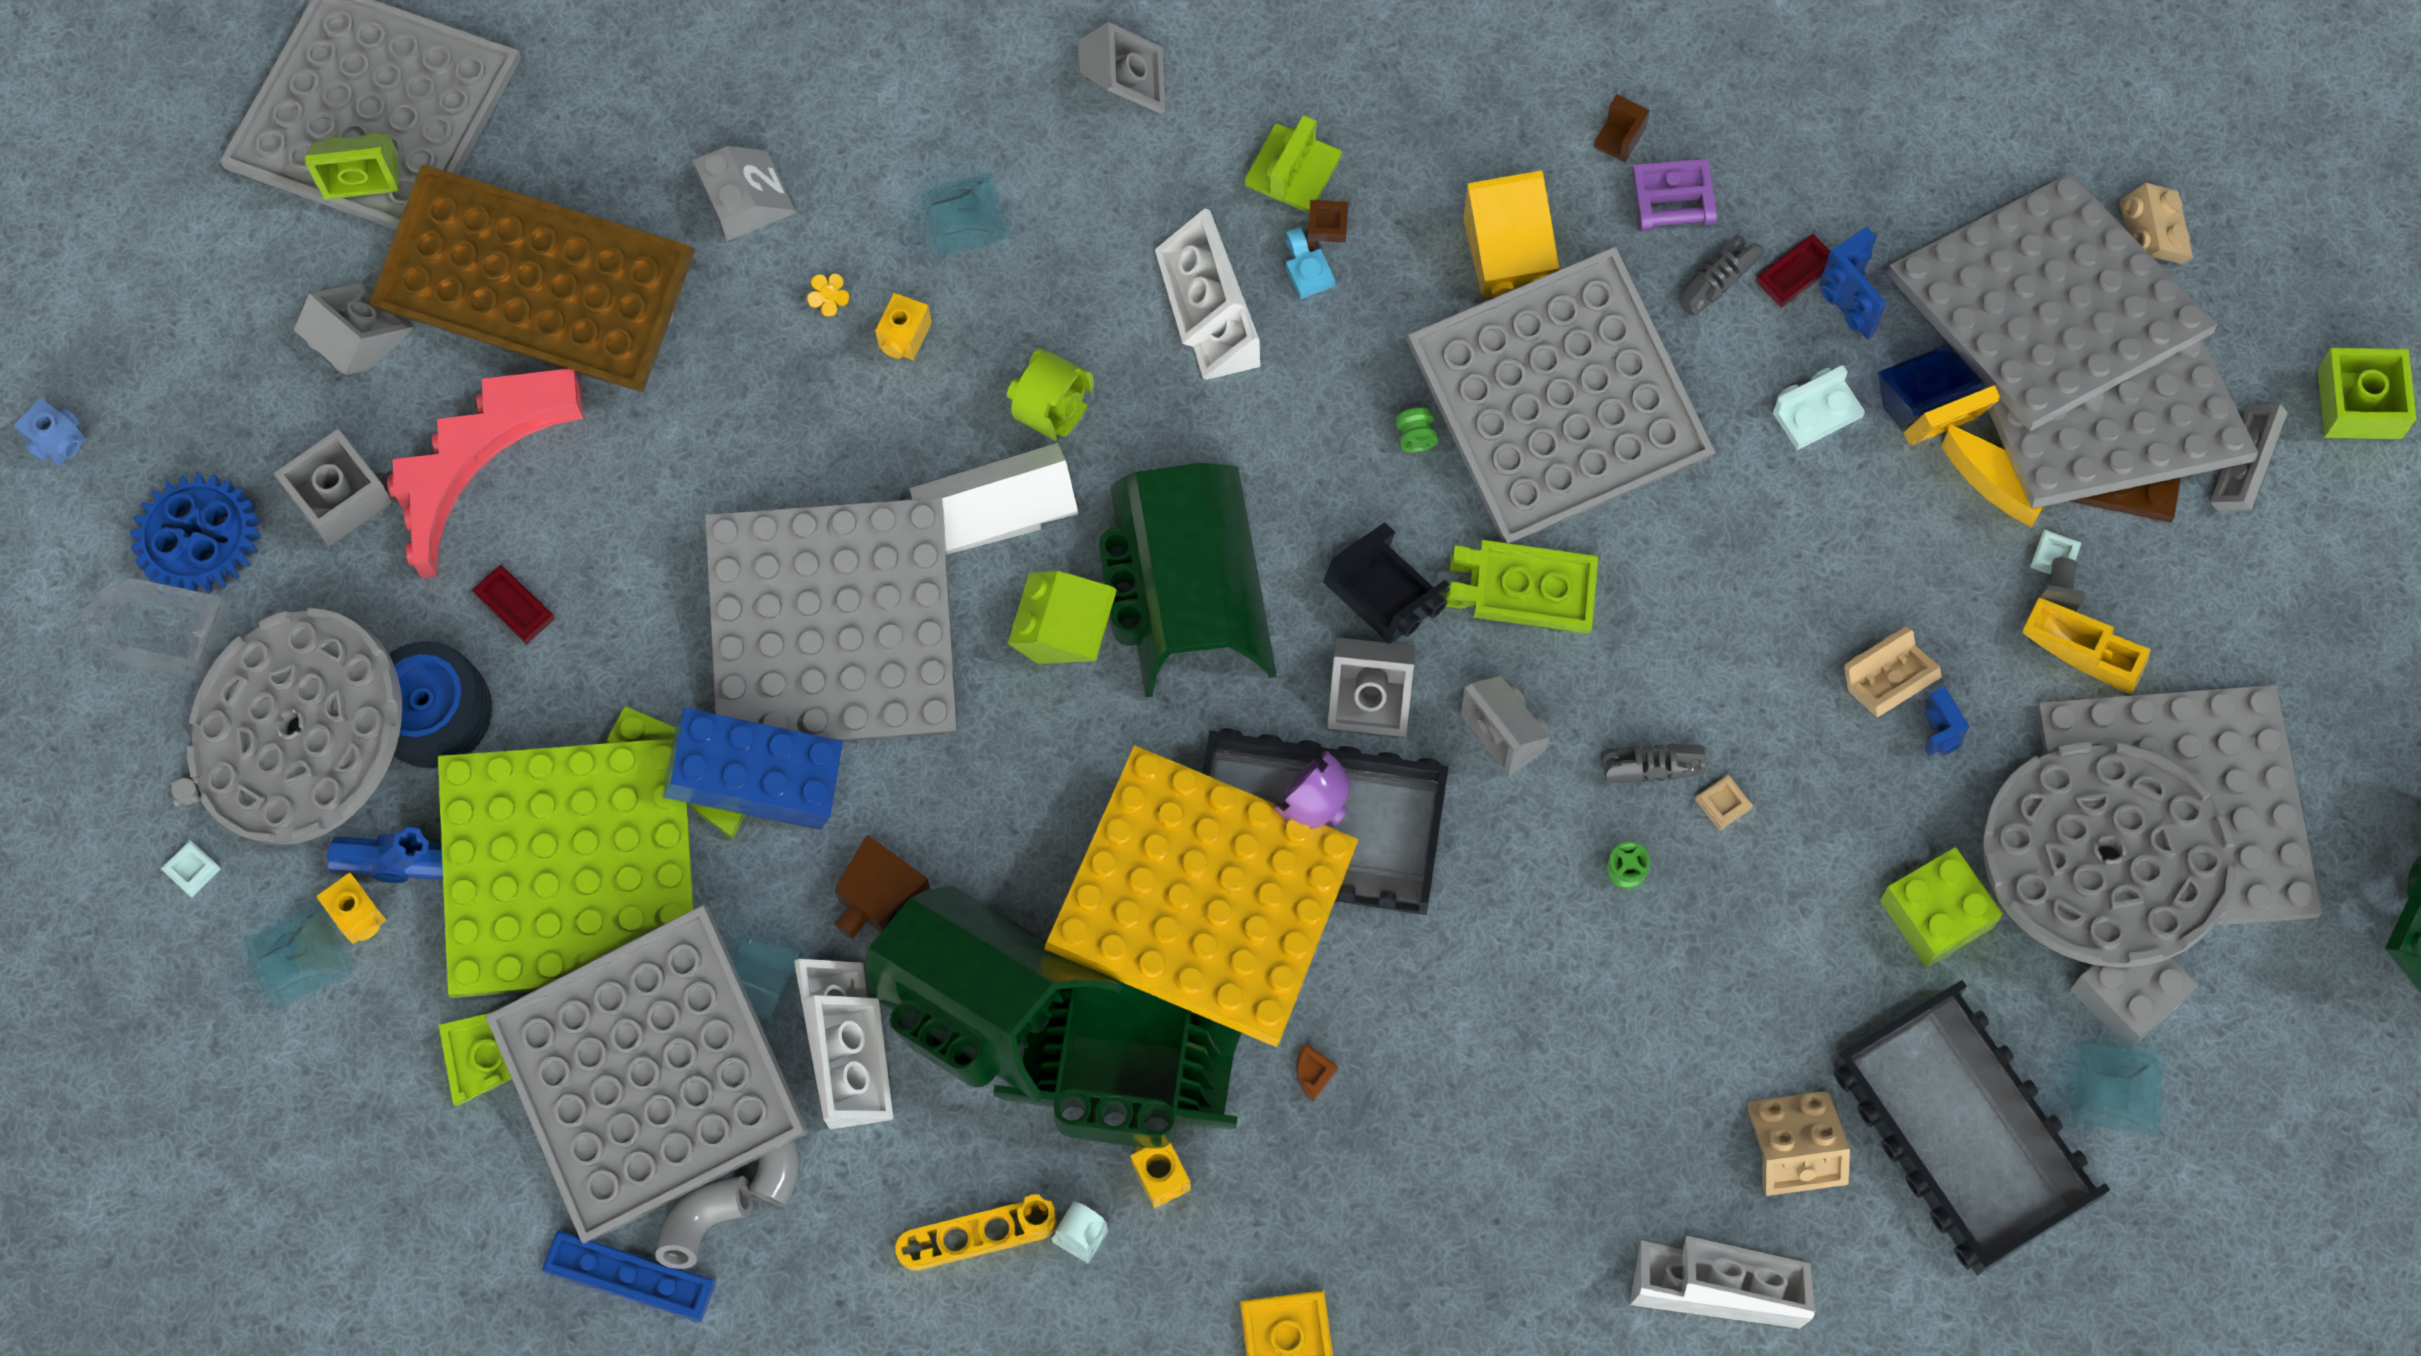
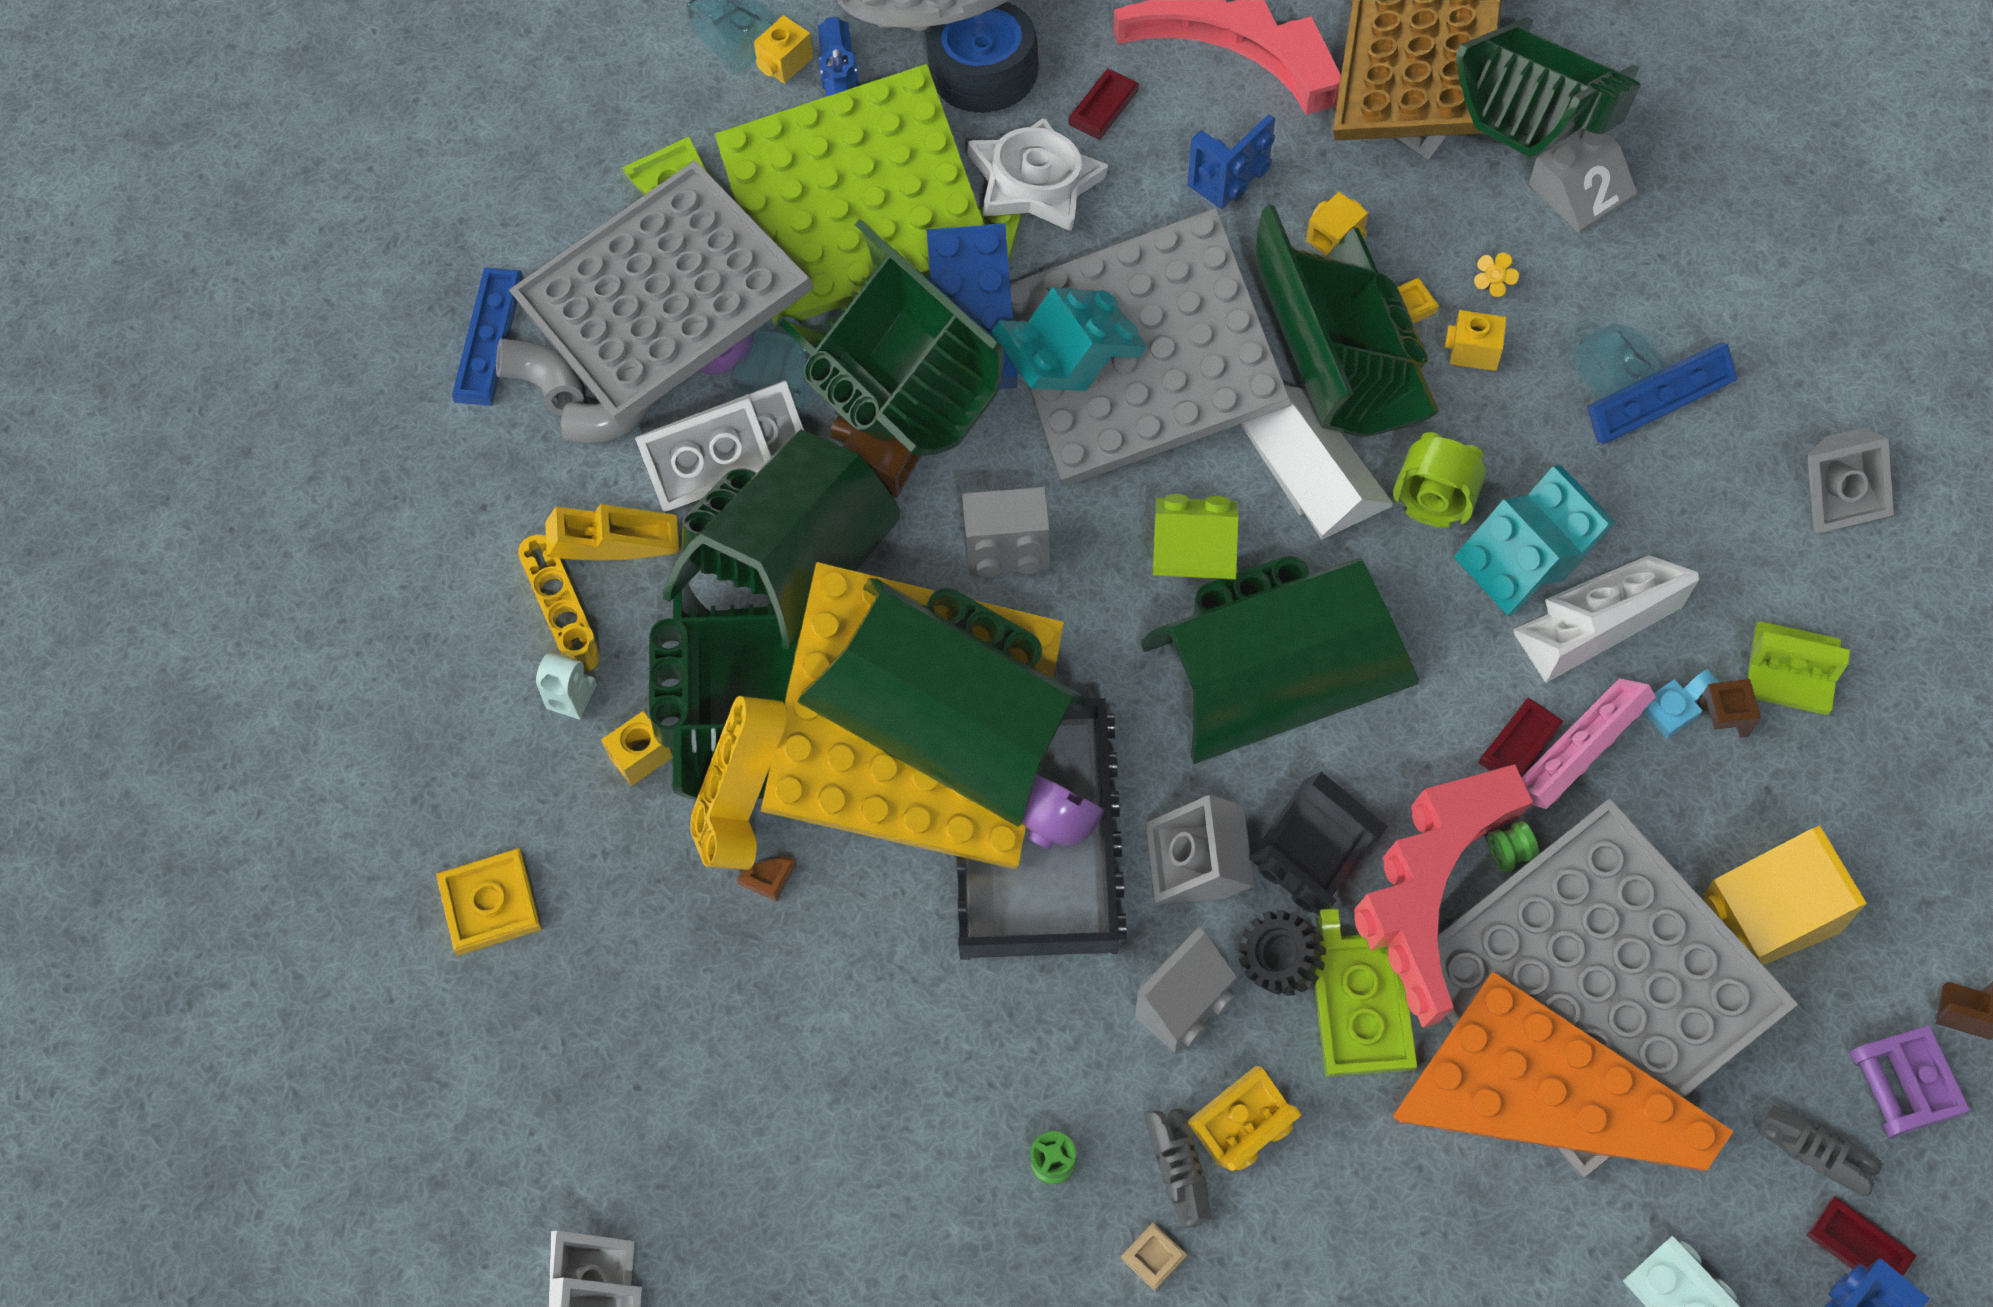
camera: 80 degrees right, 5 degrees down
(590, 685) = (1035, 173): none -> white plate
(644, 509) = (1225, 173): none -> blue bracket
(677, 183) = (1538, 91): none -> dark green panel
(735, 417) = (1334, 220): none -> yellow brick
(802, 835) = (903, 358): none -> dark green panel
(825, 679) = (1069, 339): none -> teal bracket
(835, 376) = (1418, 300): none -> yellow tile
(869, 434) = (1345, 332): none -> dark green panel
(913, 1170) = (610, 533): none -> yellow slope
(997, 190) = (1662, 393): none -> blue tile
(1013, 784) = (1006, 531): none -> light grey brick
(1130, 333) = (1534, 539): none -> teal bracket
(1212, 842) = (947, 696): none -> dark green panel
(1247, 1091) = (734, 783): none -> yellow beam
(1315, 400) = (1522, 738): none -> dark red tile
(1331, 349) = (1586, 740): none -> bright pink plate
(1434, 504) = (1419, 866): none -> coral arch
(1502, 650) = (1261, 939): none -> black tyre
(1624, 701) = (1244, 1120): none -> yellow bracket
(1632, 460) = (1540, 1080): none -> orange wing

